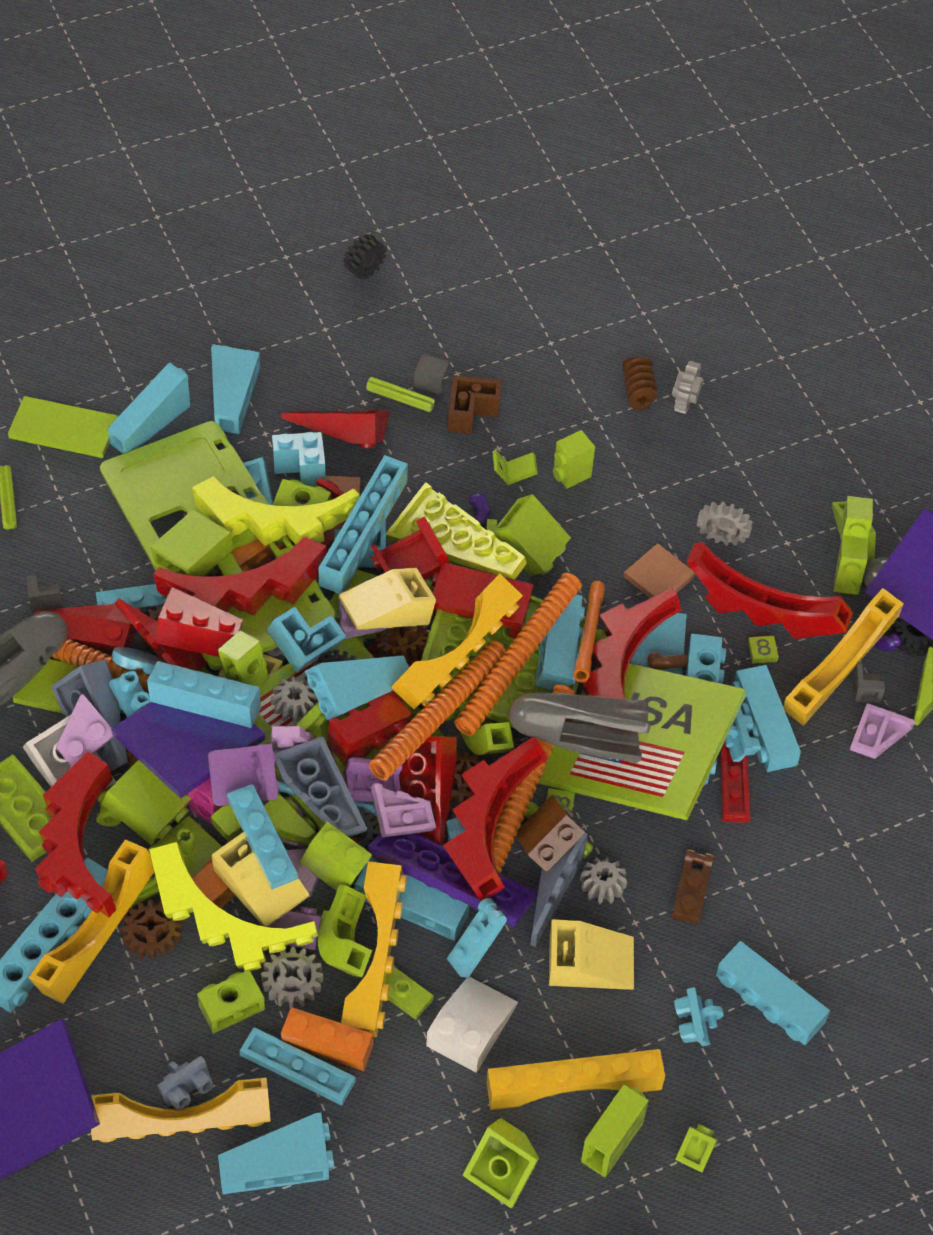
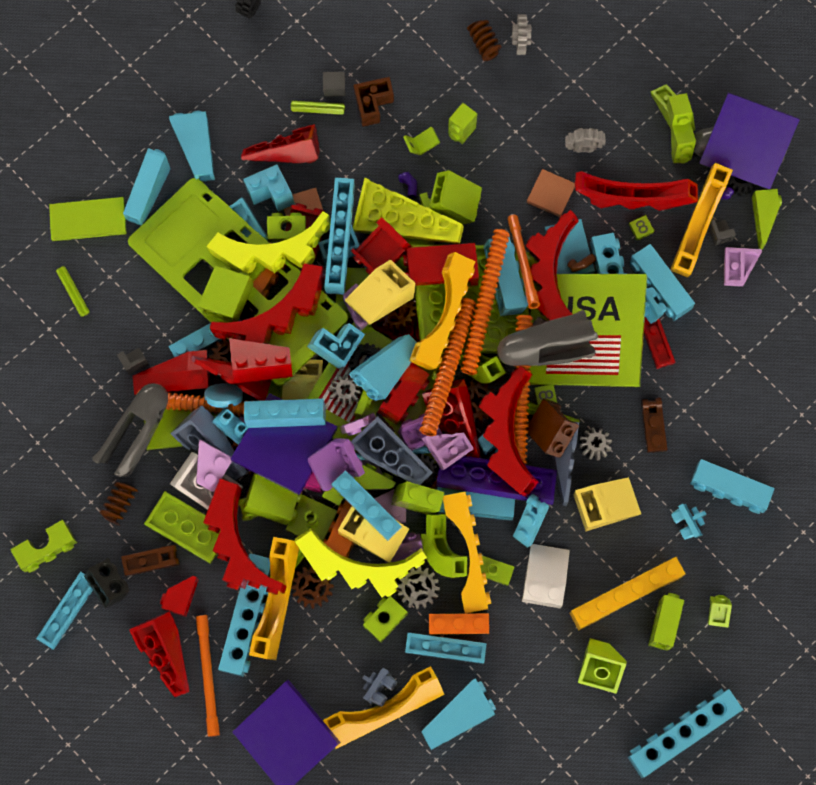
camera: 15 degrees left, 20 degrees up
(244, 659) = (302, 378): lime brick -> none

